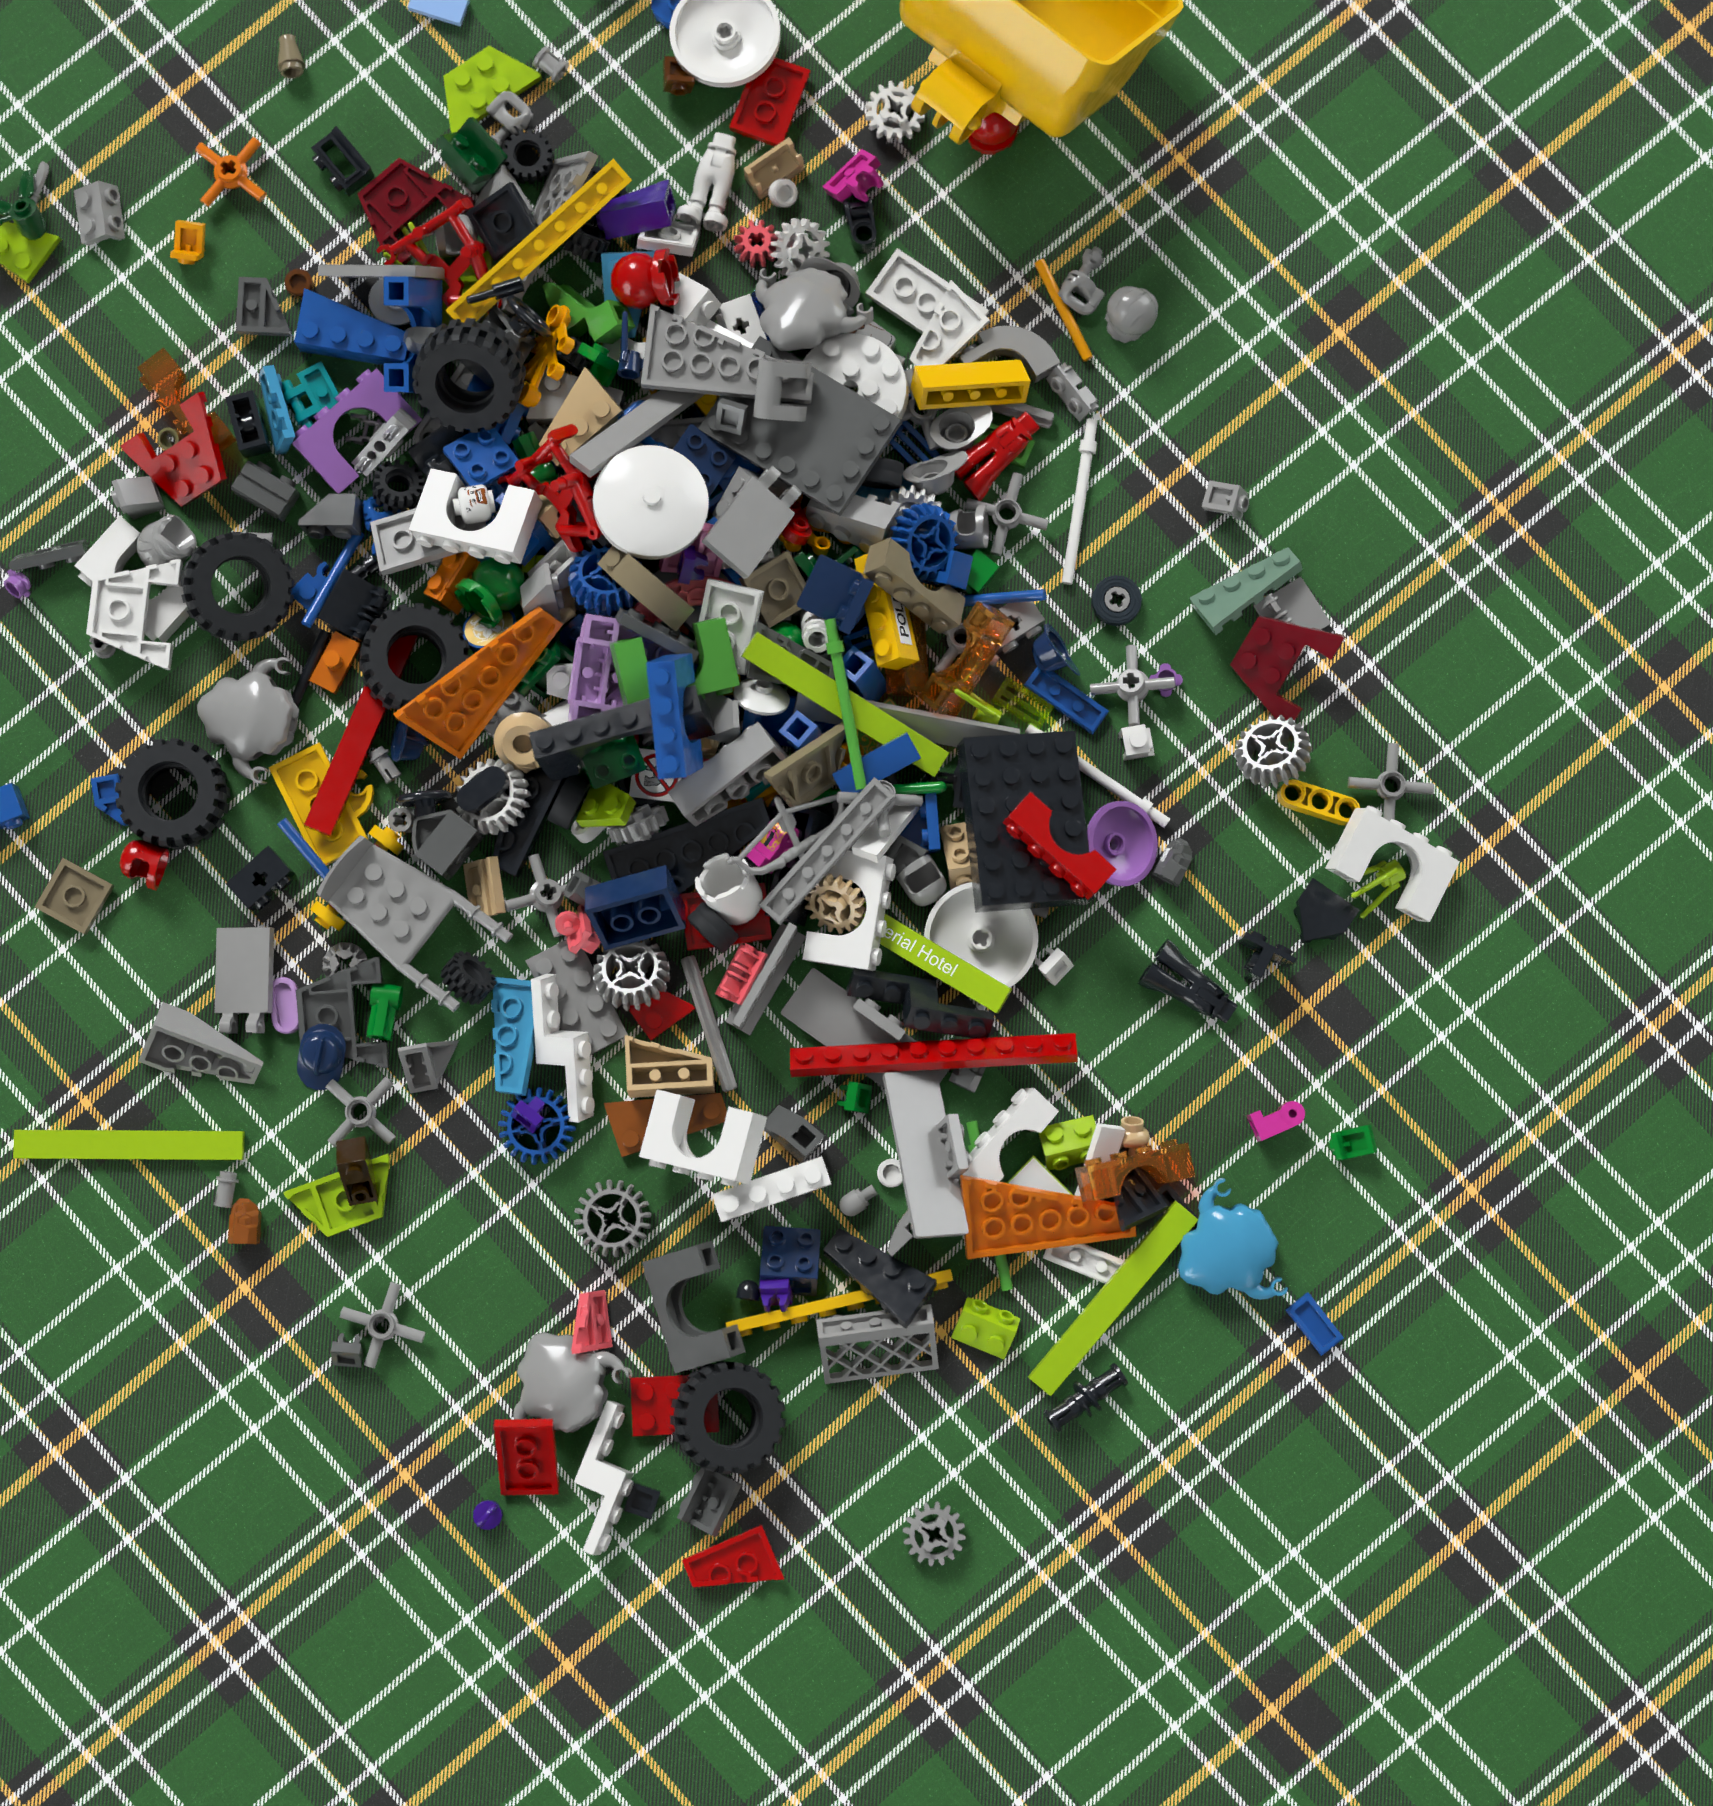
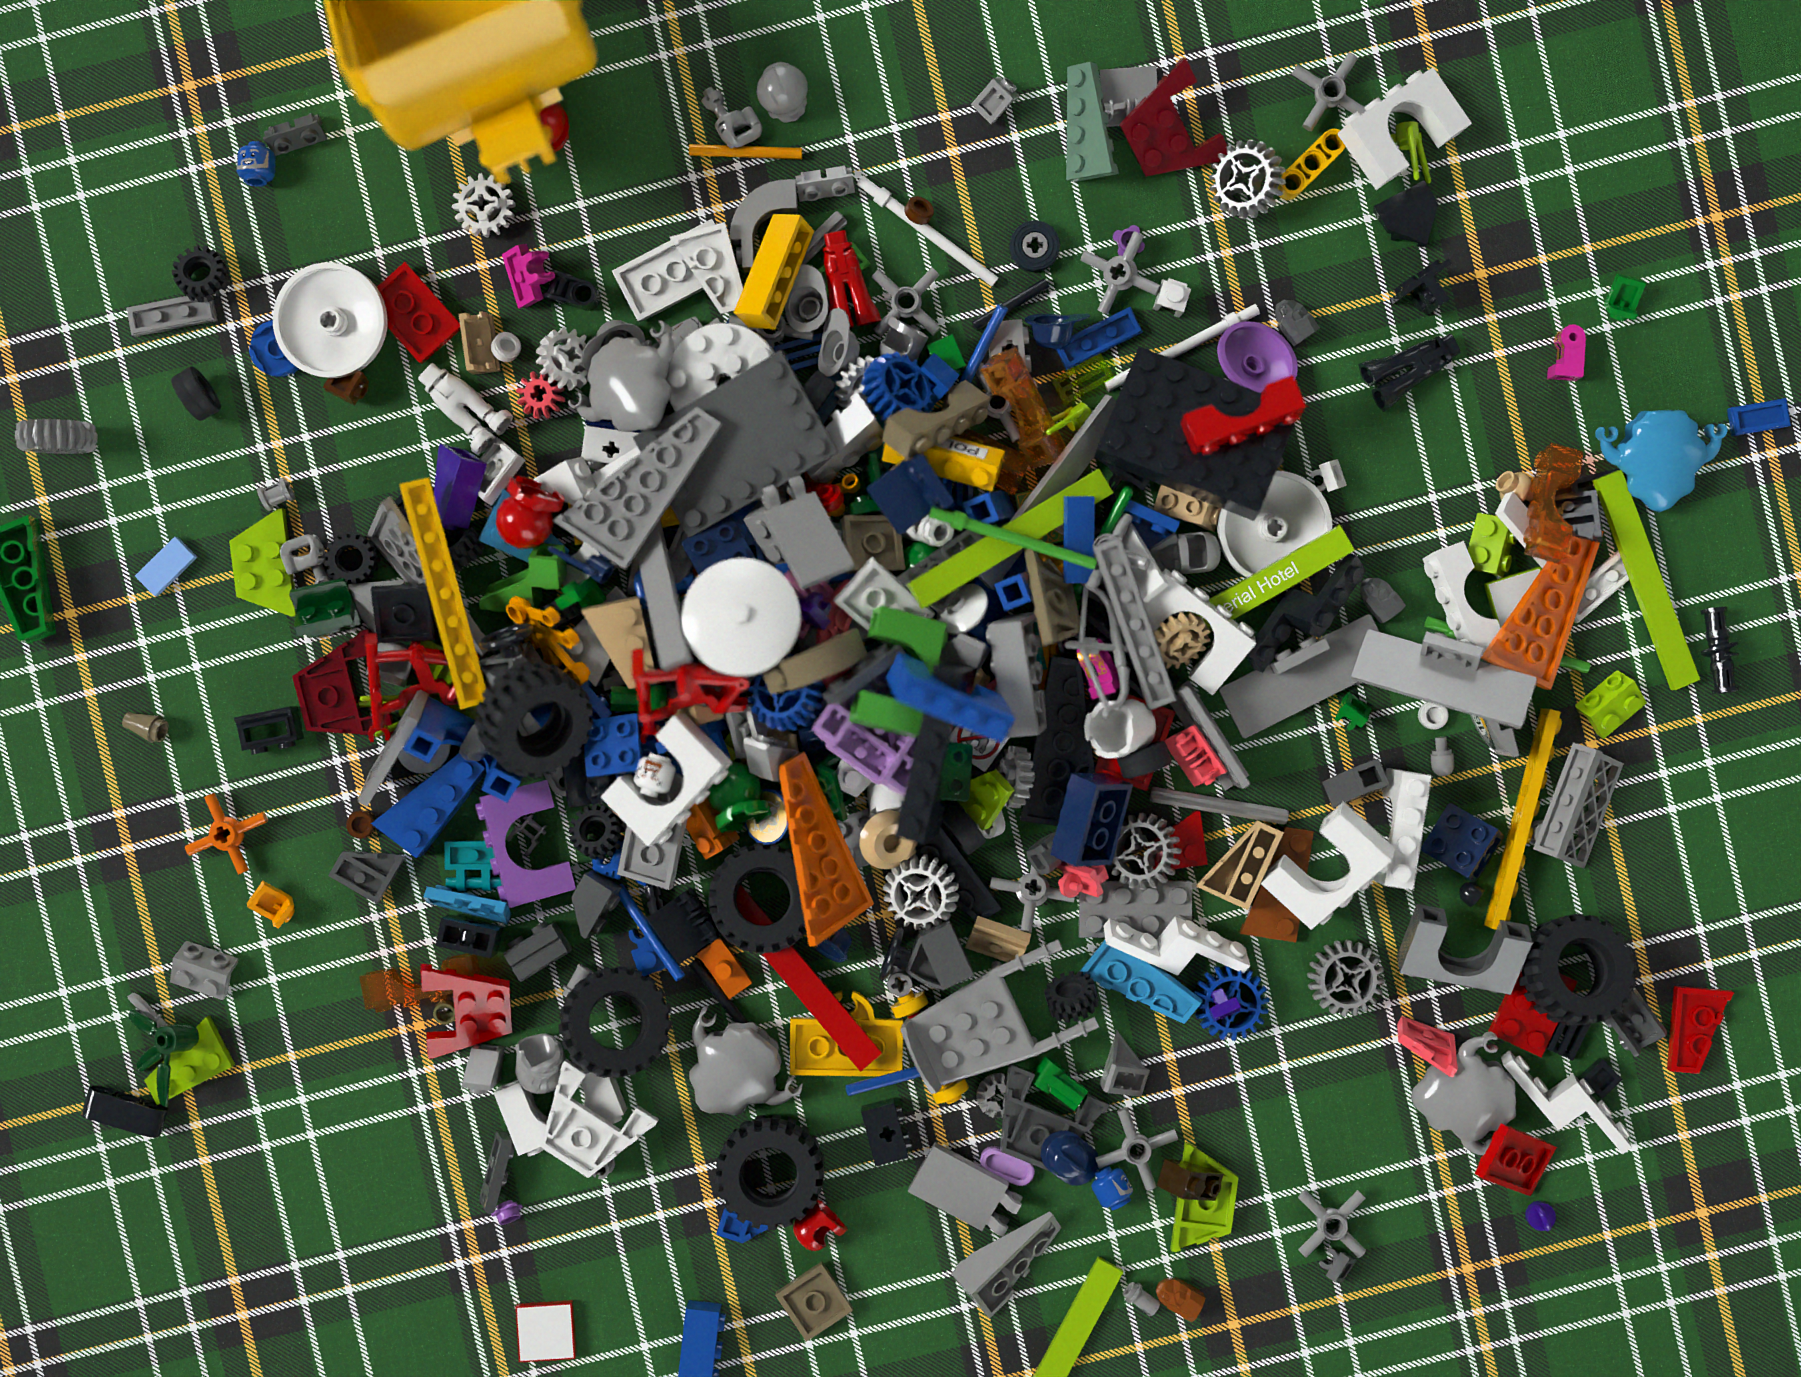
camera: 60 degrees left, 5 degrees up
(313, 1107) = (1112, 1188): none -> blue head
(384, 764) = (839, 971): light grey pin -> none
(392, 436) = (550, 825): light grey piece -> none
(482, 789) = (913, 898): black tile -> none
(498, 290) = (469, 651): black axle -> none
(654, 1451) = (1575, 1044): none -> black tile
(731, 416) = (696, 502): dark grey tile -> none
(769, 389) = (690, 453): light grey connector -> none
(775, 1293) = (1487, 871): dark purple tile -> none
(887, 1279) = (1541, 765): black wing -> none
(927, 1545) = (1775, 846): light grey gear -> none
(933, 1055) = (1356, 624): red plate -> none
(1060, 610) = (1013, 302): none -> black bar
(1092, 484) = (919, 210): none -> reddish brown tile

